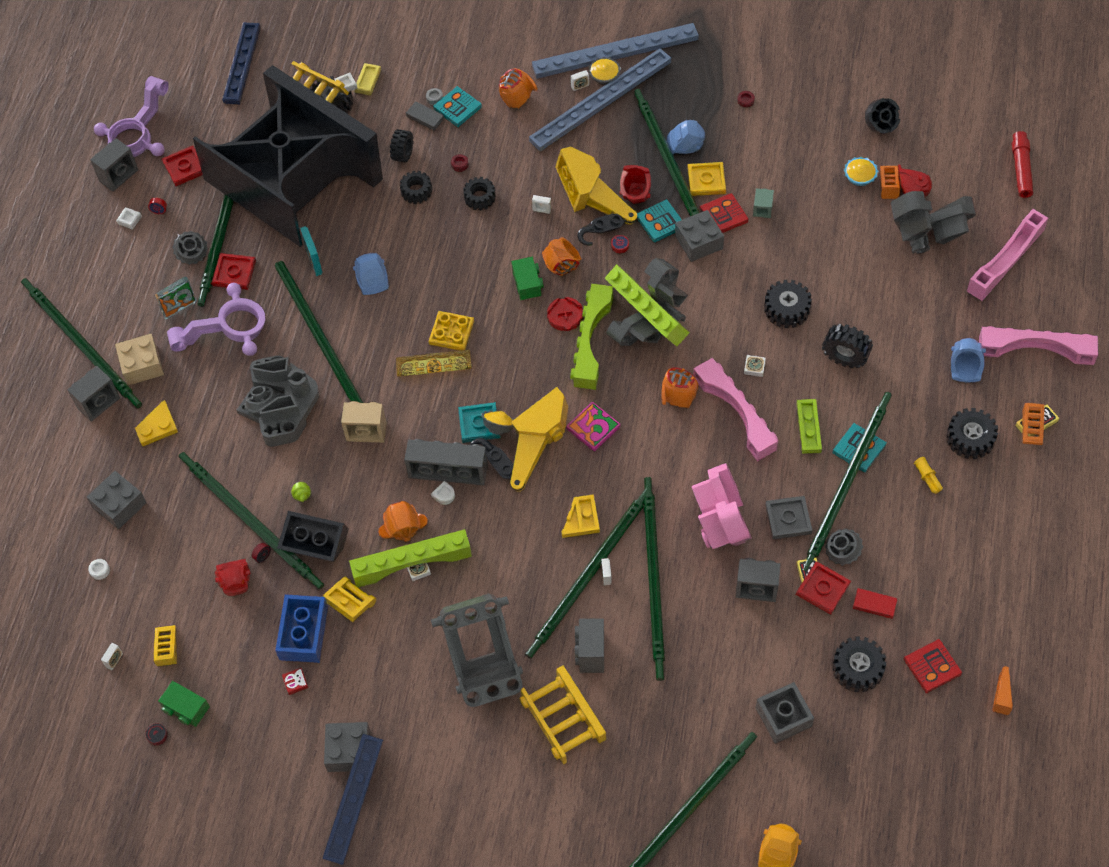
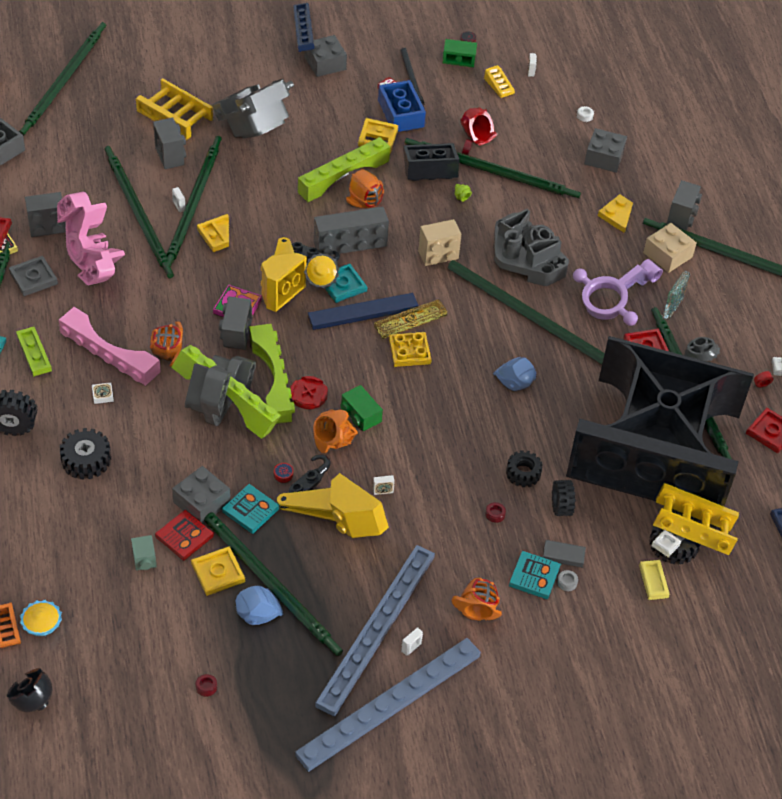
camera: 150 degrees right, 10 degrees down
(261, 685) = (411, 76): none -> black bar
(311, 251) = (582, 366): teal tile -> none
(475, 383) = (362, 311): none -> dark blue tile
(479, 201) = (454, 471): black tyre -> none
(604, 70) = (388, 659): yellow piece -> none
(607, 382) = (236, 322): none -> dark grey brick
(635, 183) = (289, 526): red helmet -> none

